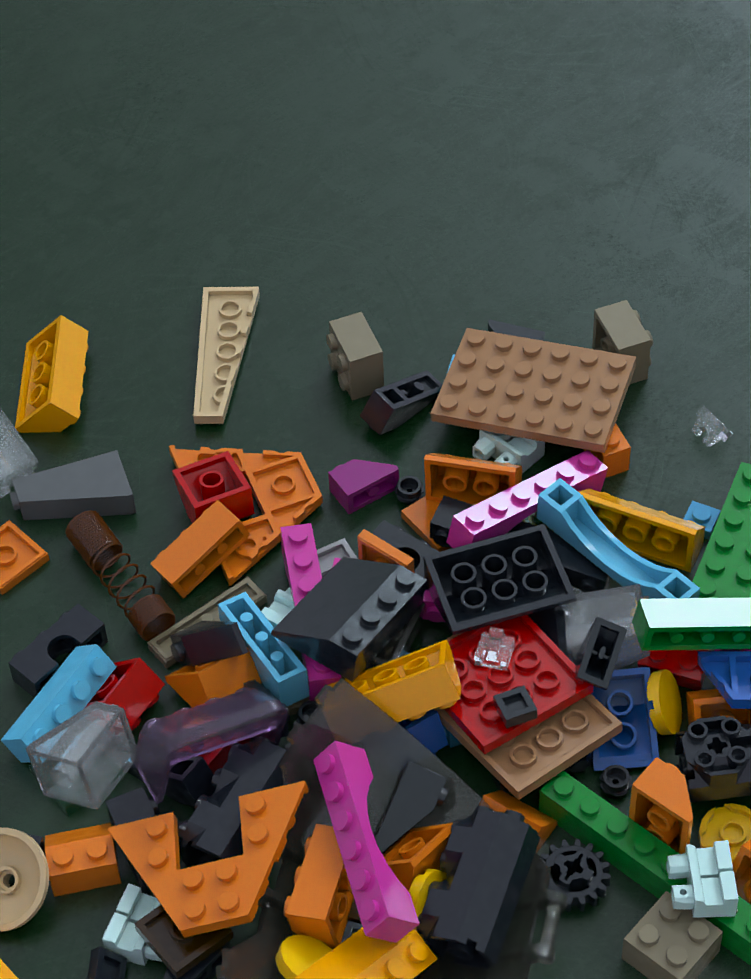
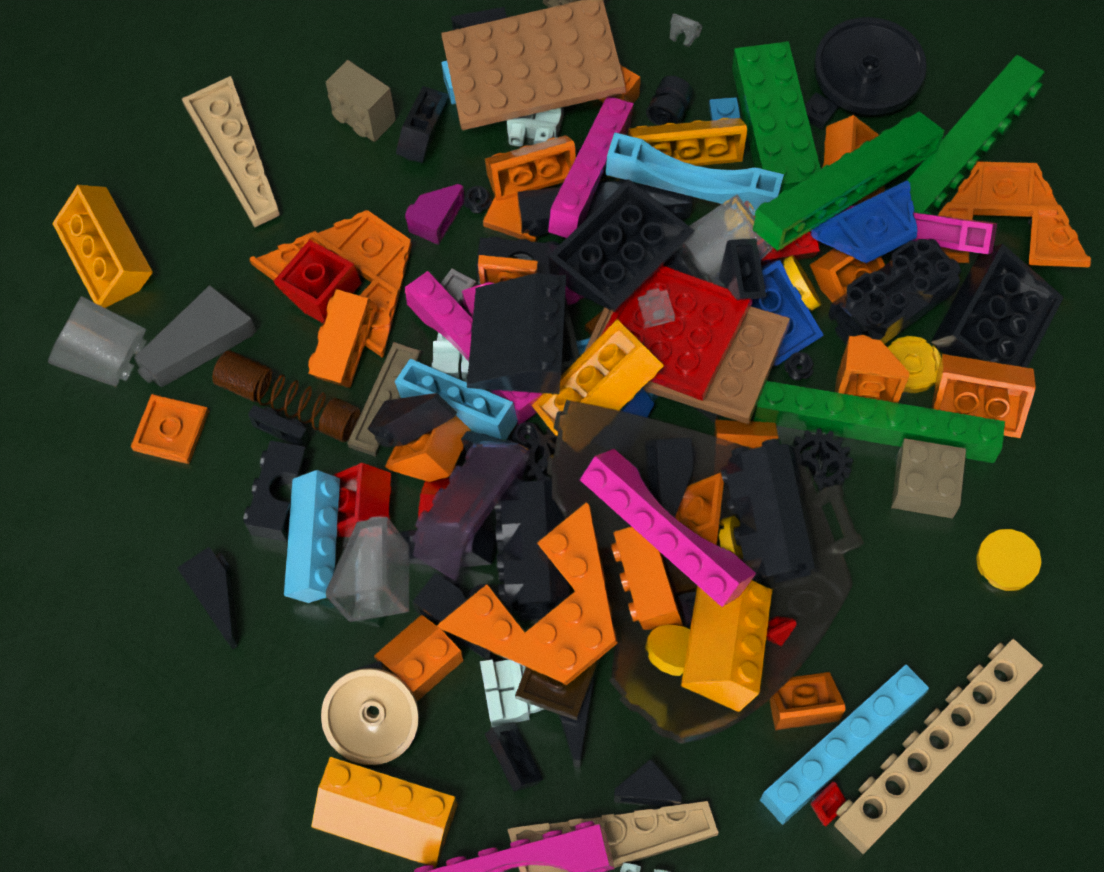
camera: 30 degrees left, 15 degrees up
(93, 593) = (271, 423): none -> black plate
(515, 706) = (708, 349): black plate -> none
(649, 485) = (669, 101): none -> black wheel
(709, 879) = (937, 415): light aqua hips -> none

